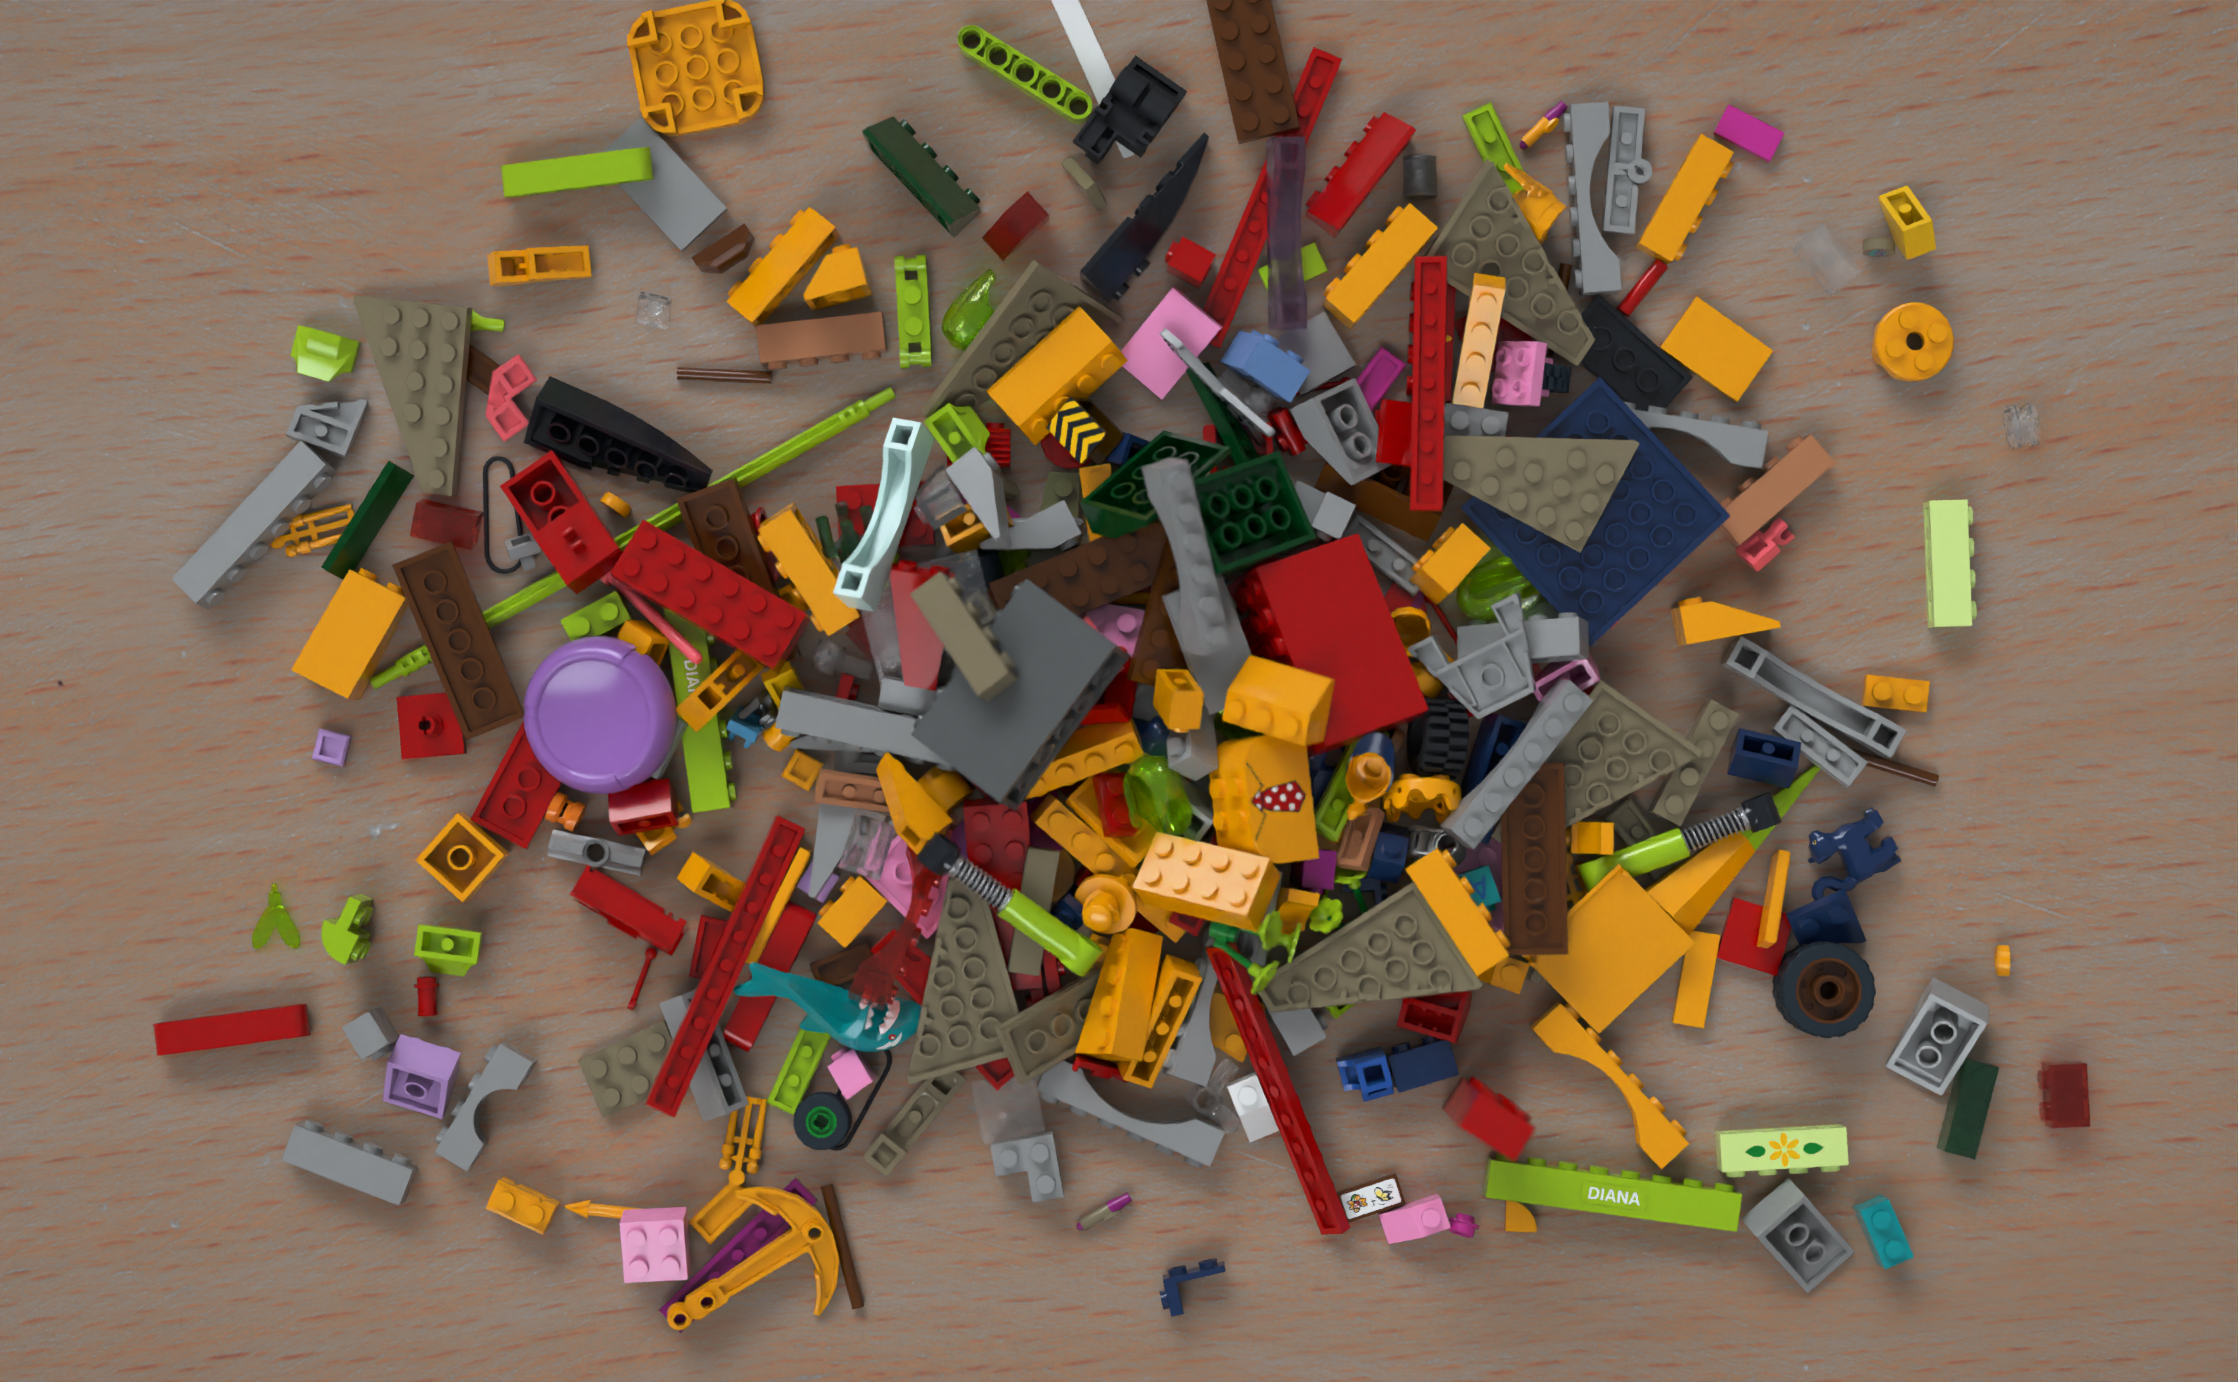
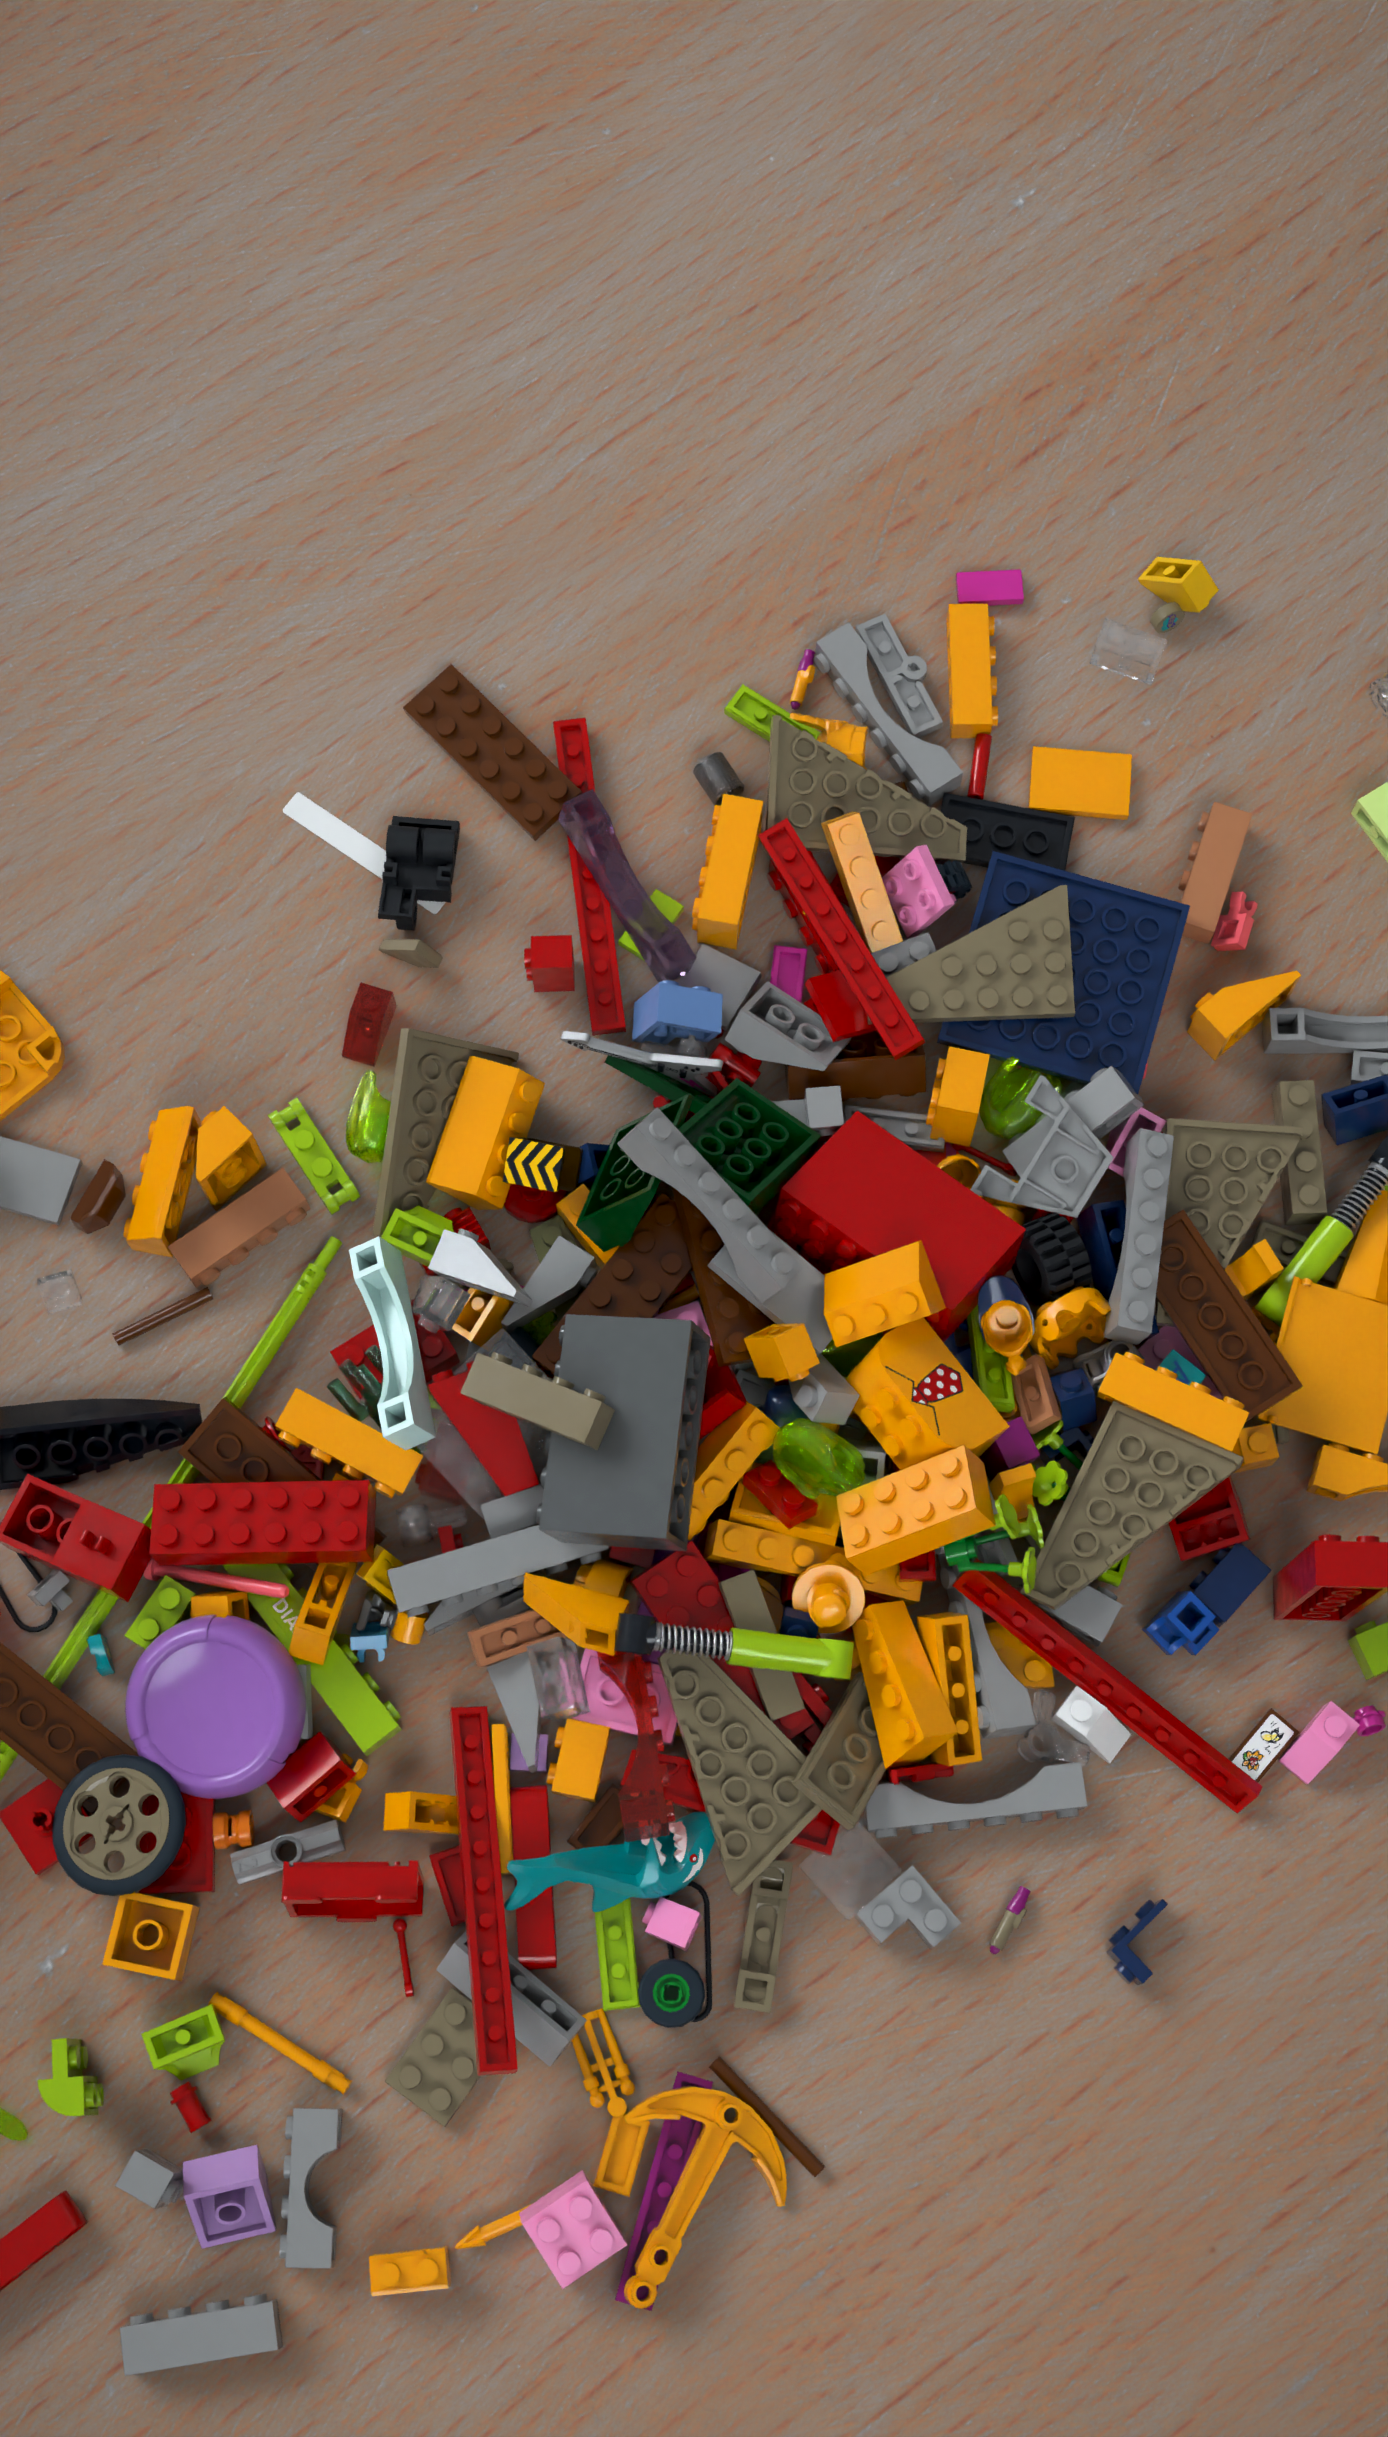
camera: 30 degrees left, 15 degrees down
(445, 742) = (140, 1868): none -> wedge
(497, 952) = (320, 2069): none -> light orange piece
(537, 616) = (99, 1646): none -> teal tile
(616, 504) = (121, 1496): light orange tile -> none
(802, 769) = (451, 1651): light orange tile -> none
(922, 175) = (251, 1026): dark green slope -> none
(1017, 61) = (287, 877): lime beam -> none
(1136, 238) = (488, 965): black wedge -> none
(1151, 357) = (563, 1067): bright pink tile -> none
(1360, 173) = (662, 804): red slope -> none
(1735, 444) = (1149, 850): light grey arch -> none
(1897, 358) = (1247, 698): light orange plate -> none

